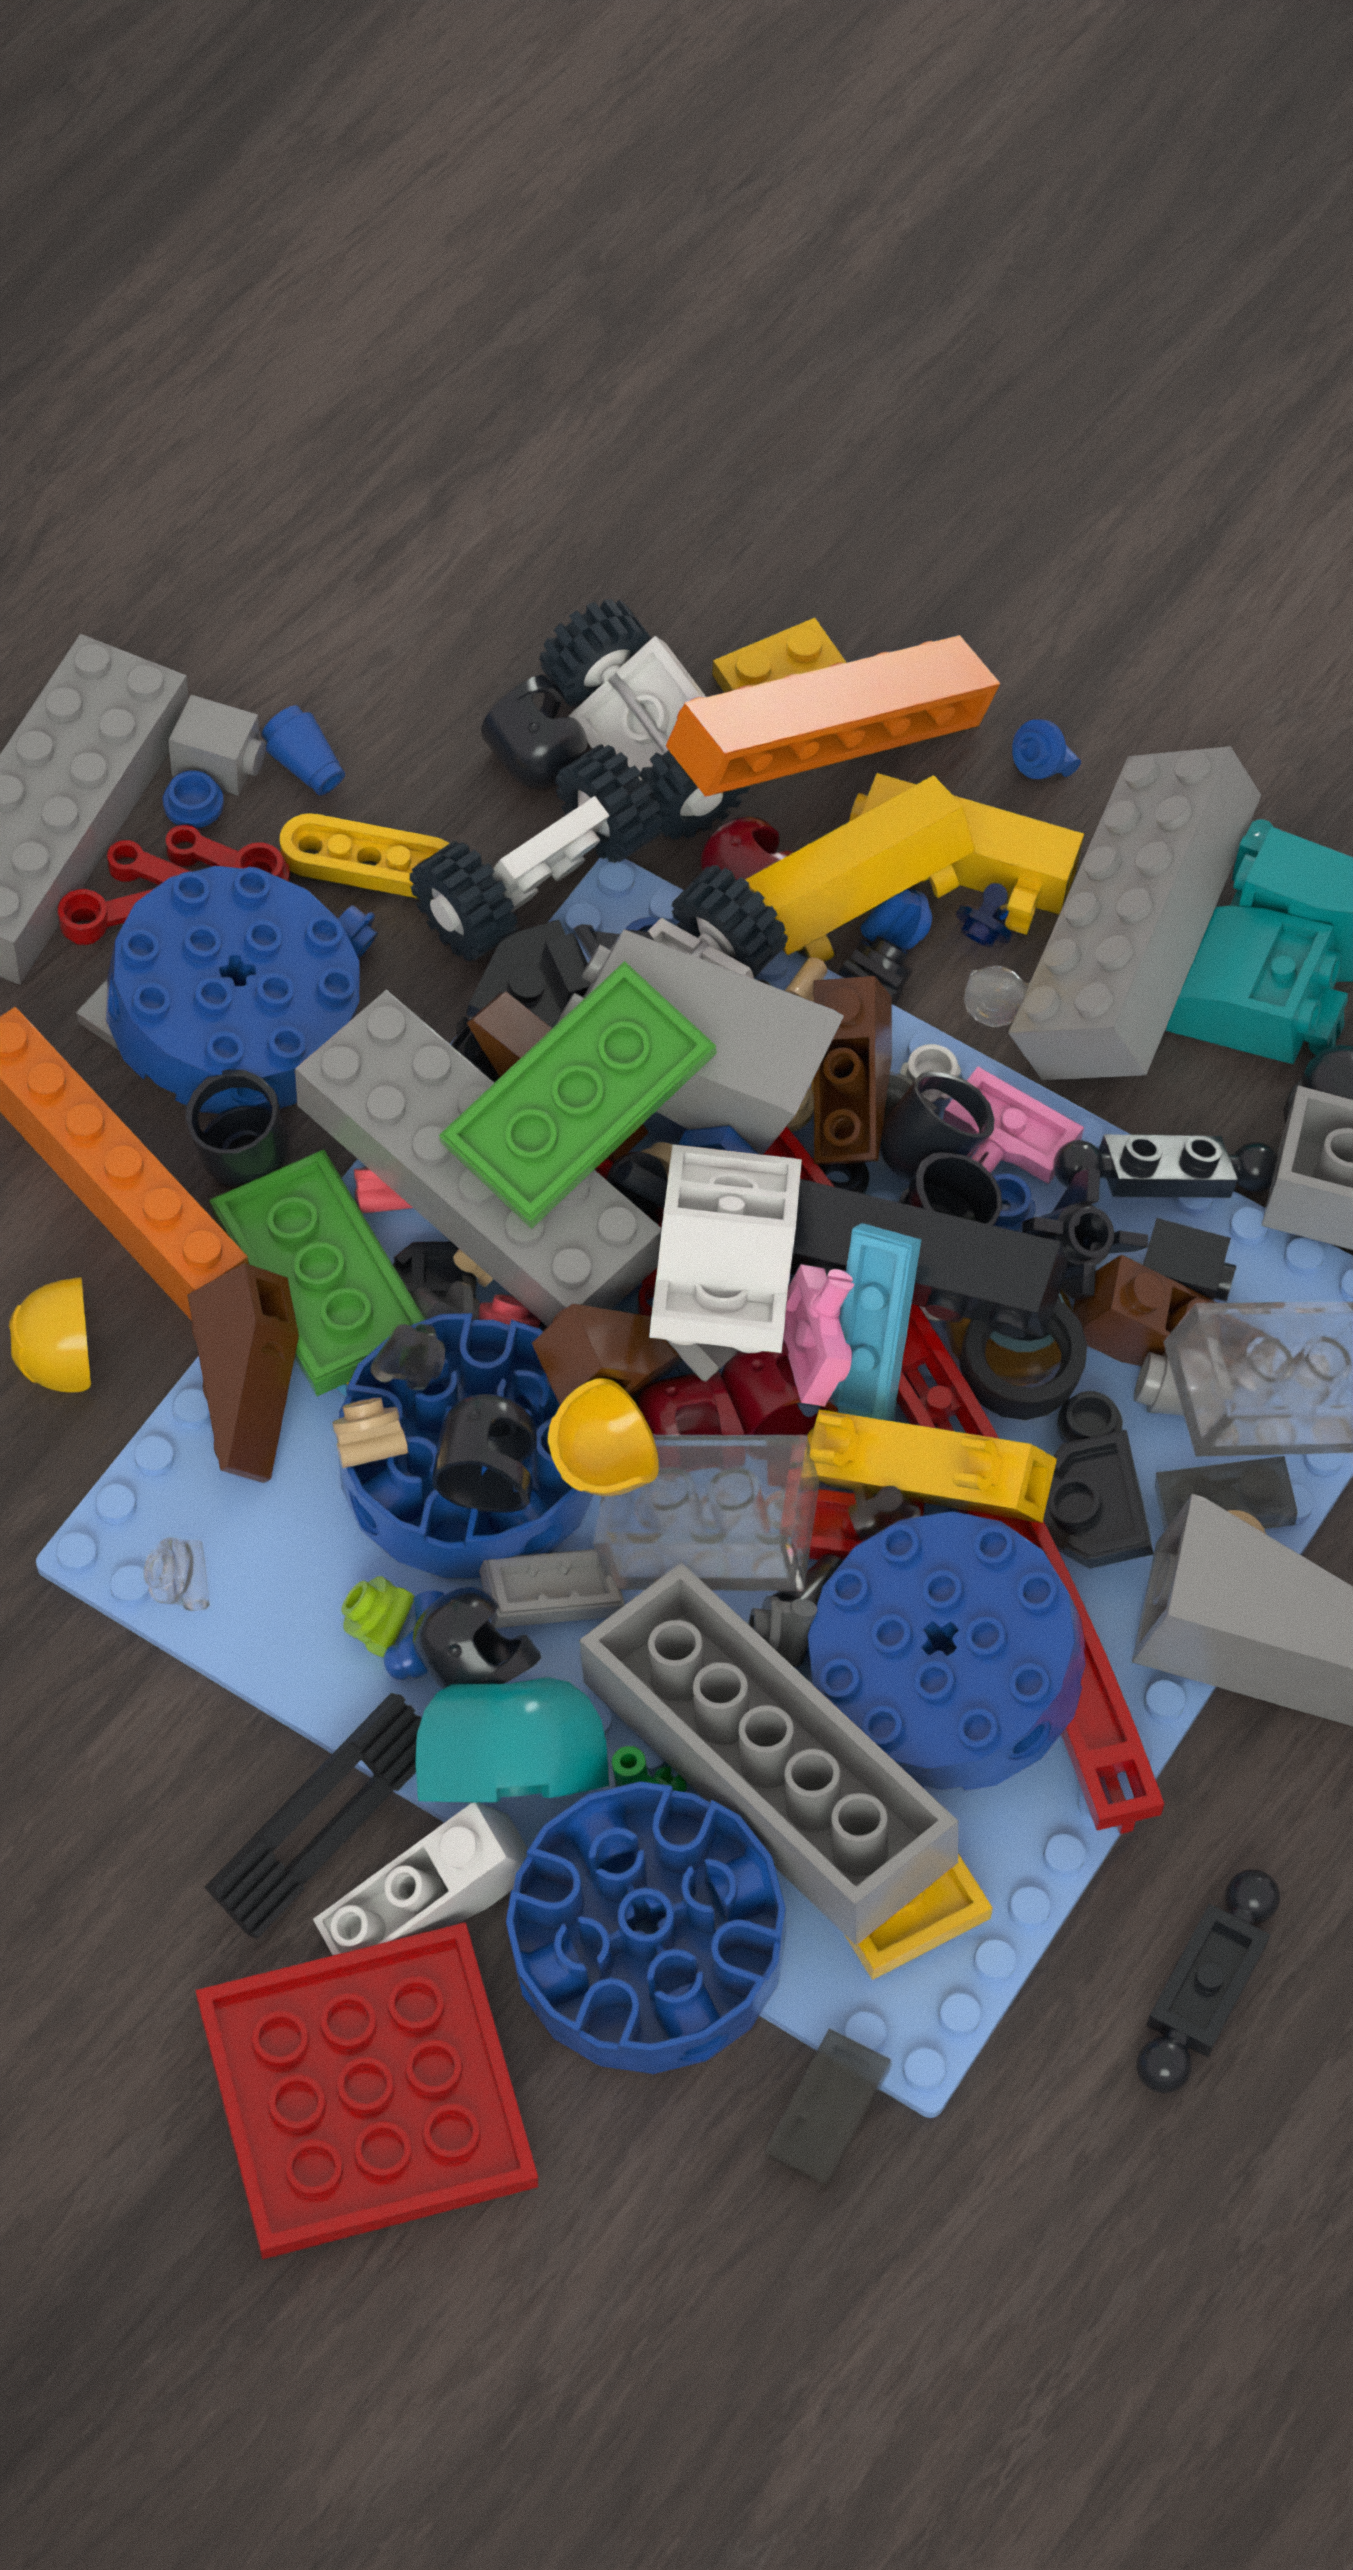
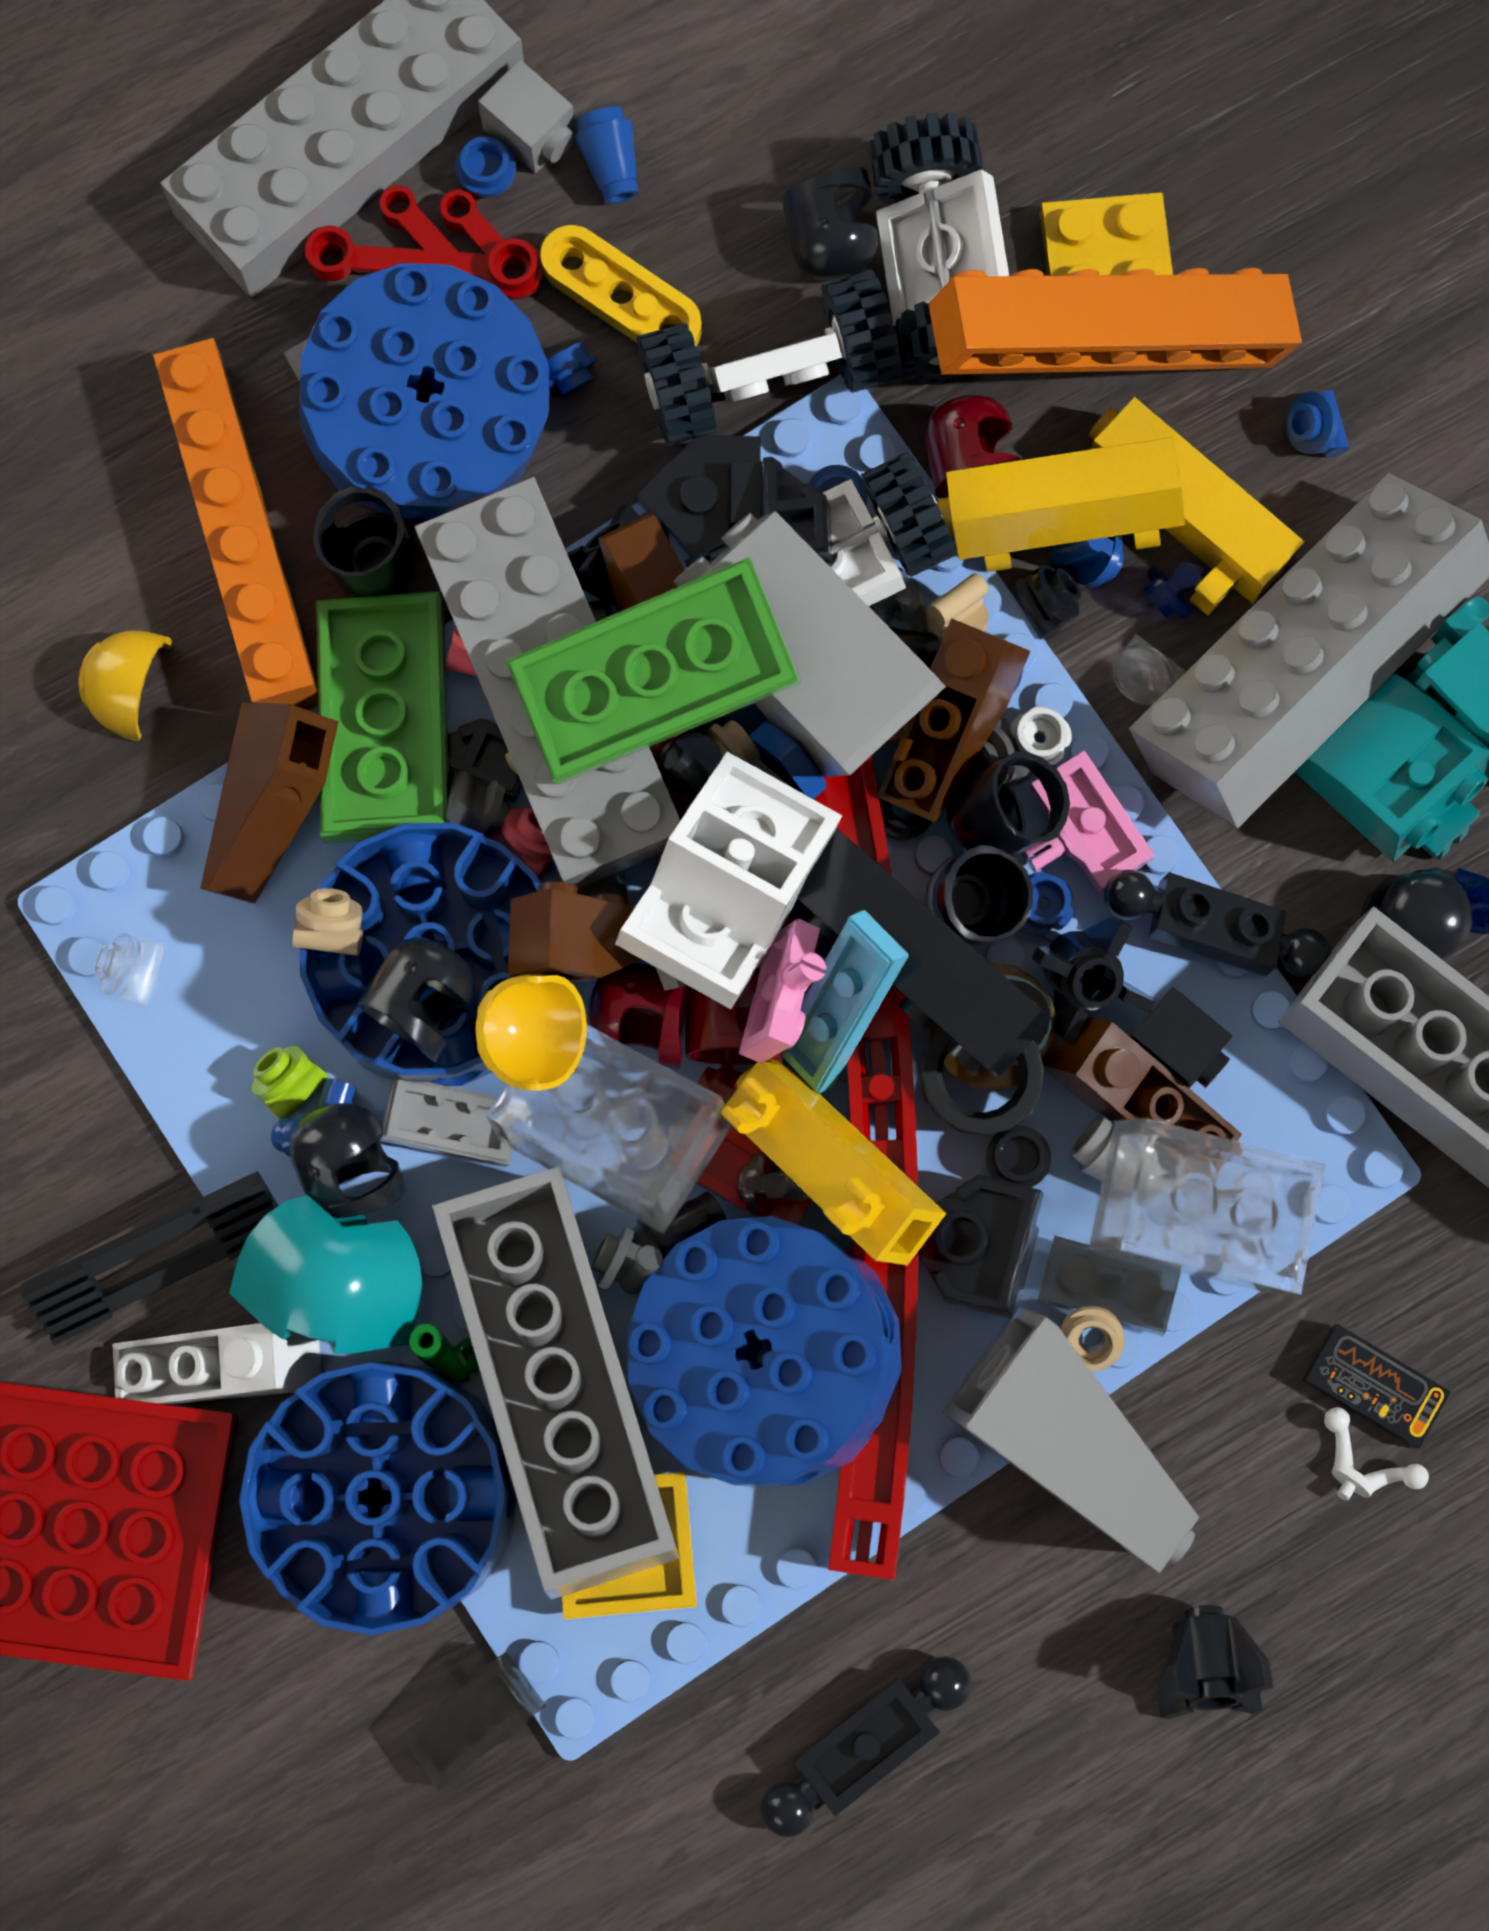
camera: 25 degrees right, 20 degrees up
(410, 1356) = (406, 865): clear smoke plate -> none

